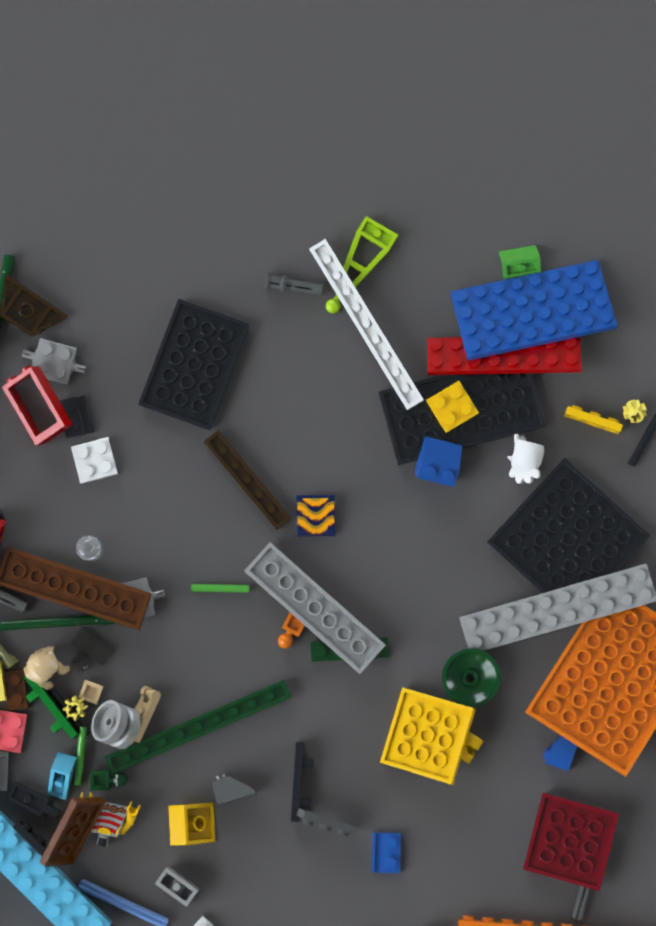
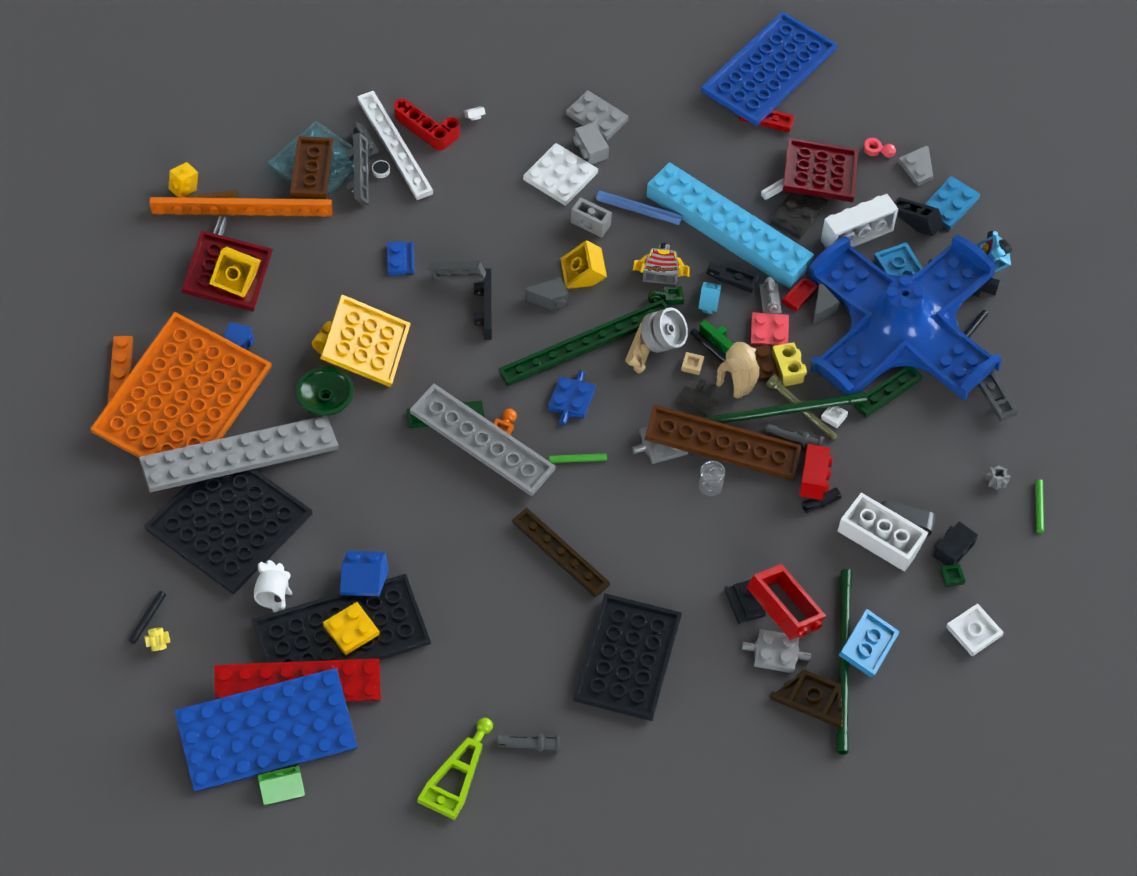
camera: 170 degrees right, 25 degrees down
(30, 837) = (730, 246): black plate -> none
(70, 705) = (705, 346): light yellow gear -> none
(72, 831) = (692, 243): reddish brown plate -> none
(80, 755) = (695, 313): bright green bar -> none
(94, 460) = (719, 562): white plate -> none
(219, 660) = (571, 397): none -> blue plate
(315, 515) = (487, 525): slope -> none
(366, 324) = (448, 702): white plate -> none
(563, 831) = (234, 271): none -> yellow slope
(593, 419) = (201, 629): yellow plate -> none

